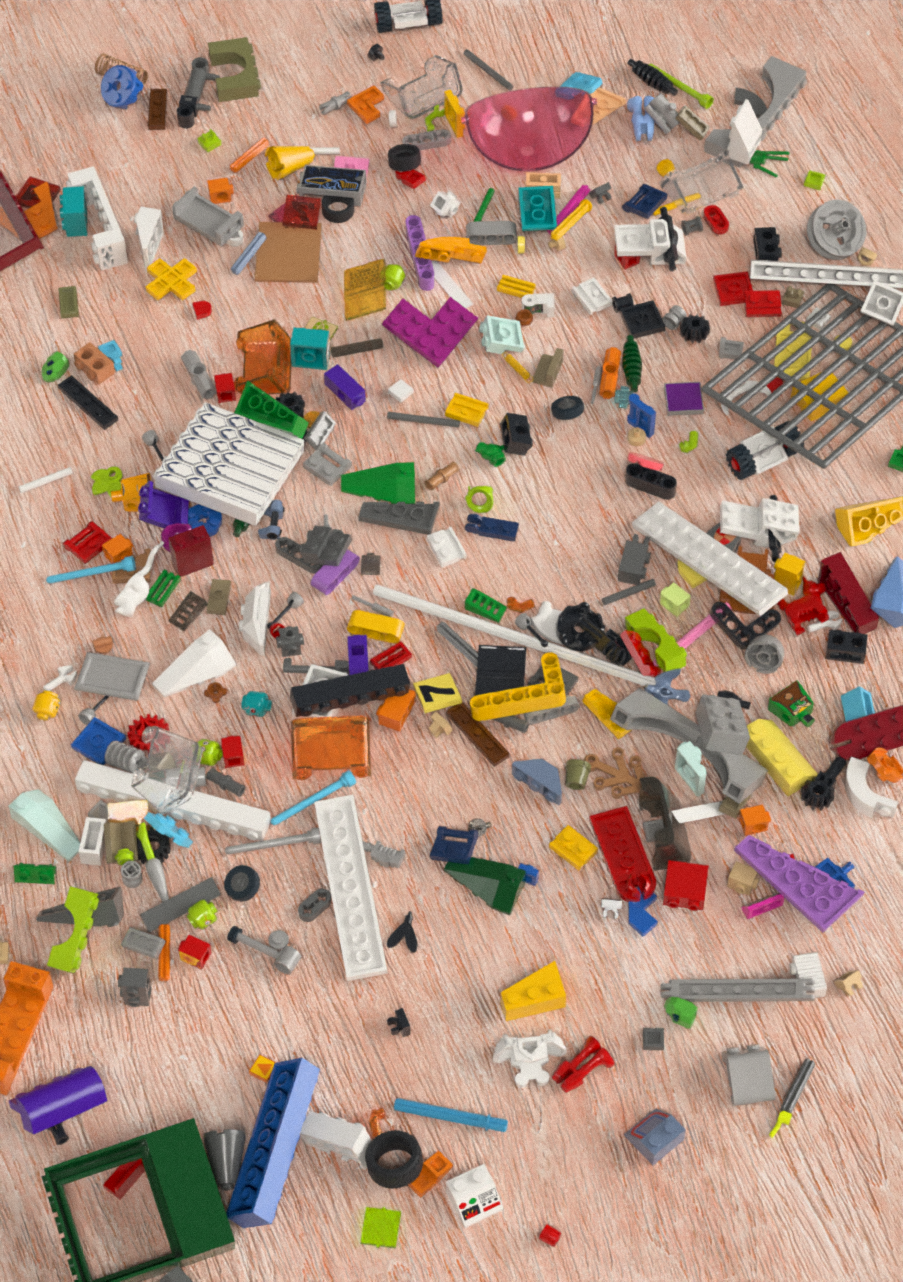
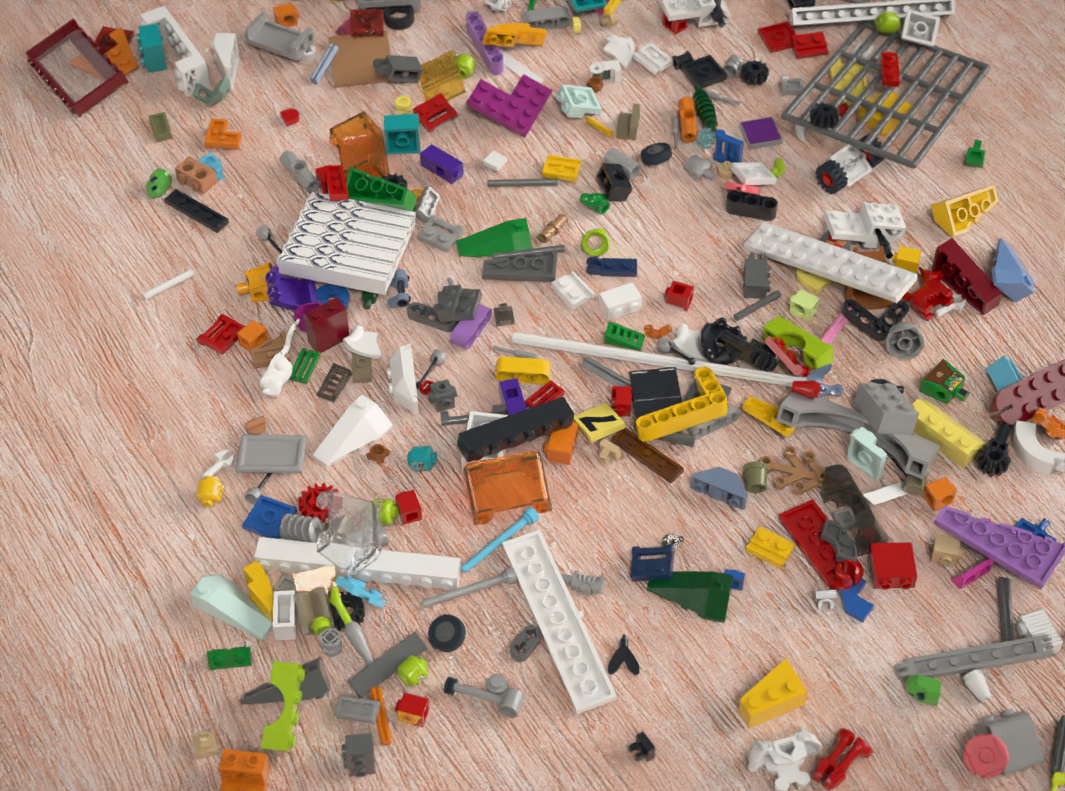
camera: 10 degrees left, 5 degrees down
(74, 810) = (259, 588): none -> yellow slope
(105, 483) = (227, 278): lime plate -> none
(125, 322) = (219, 137): none -> orange plate
(127, 563) = (264, 347): medium azure piece -> none
(130, 274) = (214, 96): none -> sand green piece
(171, 279) = (255, 94): yellow plate -> none
(224, 573) = (362, 342): none -> white arm
(225, 782) = (407, 537): dark grey pin -> none
(230, 396) = (335, 182): none -> red plate
(321, 310) = (403, 103): none -> light yellow tile
(323, 271) = (399, 68): none -> dark grey hinge
(348, 322) = (433, 108): none -> red plate
(357, 347) = (444, 129): clear smoke axle -> none
(411, 499) = (529, 252): none -> dark grey bar
(465, 674) = (621, 400): none -> red brick
(490, 567) = (620, 301): none -> white brick
(517, 285) = (579, 60): yellow tile -> none
(535, 418) = (629, 166): none -> light grey pin
(551, 569) = (679, 294): none -> red brick
(561, 279) = (620, 49): none -> white arm
(608, 429) = (699, 167): none -> light grey piece
(641, 853) = (840, 541): none -> dark grey tile
(650, 350) = (716, 96): none -> light grey piece
(650, 692) = (807, 388): none -> red cone
(653, 1038) = (902, 721): dark grey tile -> none
(661, 445) = (753, 173): none -> white plate
(719, 1084) = (986, 755): none -> coral tile
(734, 1016) = (977, 685): none -> white cone
(743, 396) = (824, 115): none -> black gear
(784, 948) = (1005, 605): none -> dark grey axle
(793, 297) = (834, 37): dark tan tile -> none
(835, 347) = (889, 69): none -> red plate
(846, 649) = (978, 323): black brick -> none
(851, 290) = (887, 22): none -> lime head

